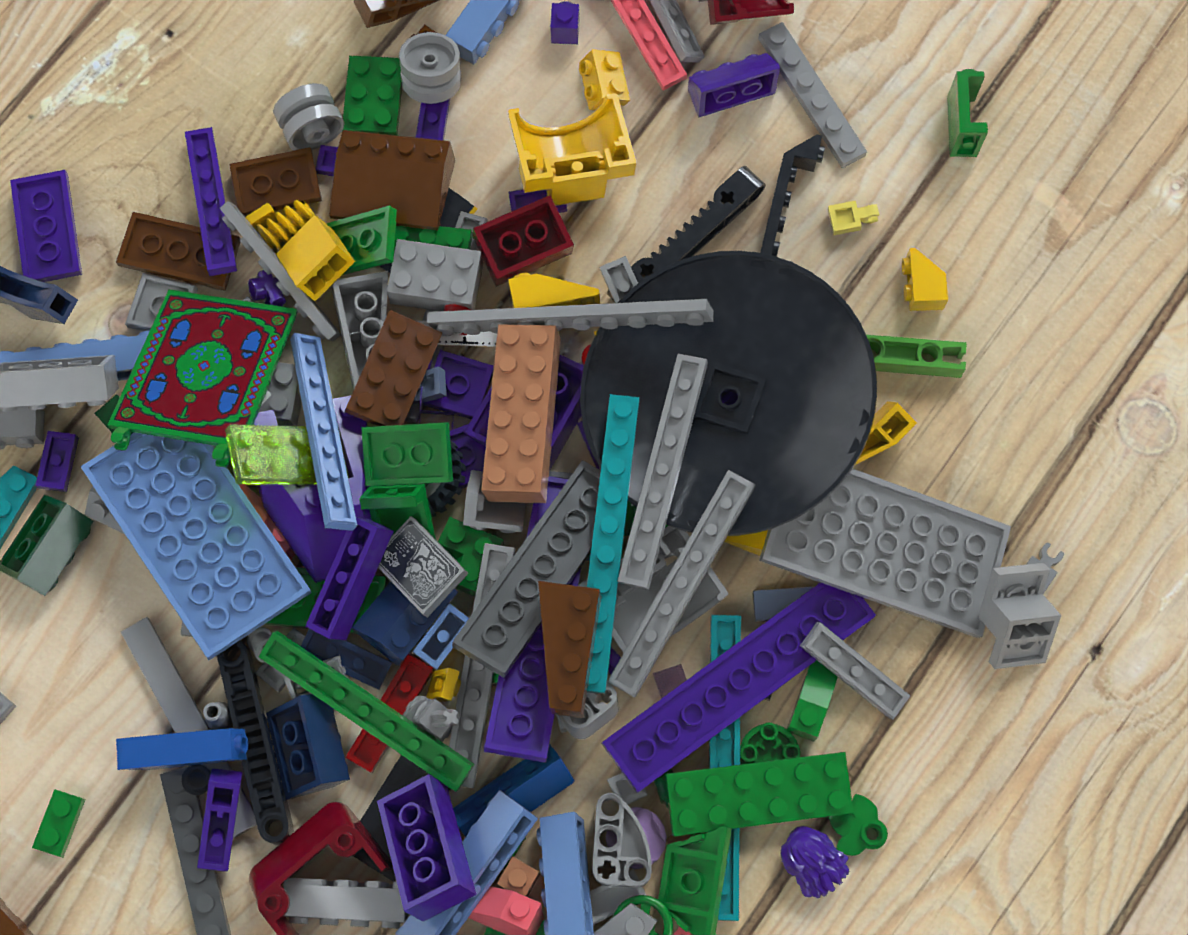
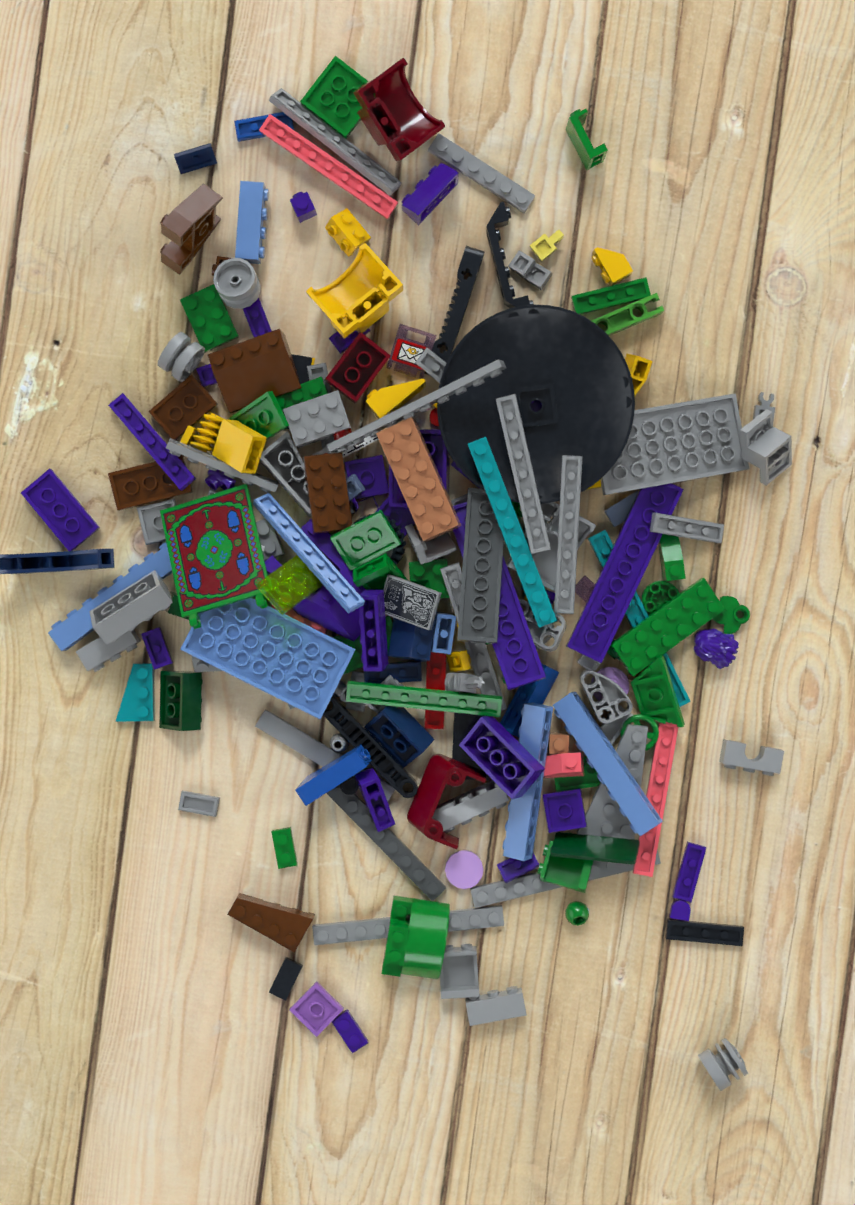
camera: 25 degrees left, 15 degrees up
(569, 635) = (523, 603): reddish brown wedge -> none
(598, 251) = (407, 351): none -> container
(812, 238) = (530, 270): none -> light grey slope
(904, 320) = (611, 296): none -> green plate

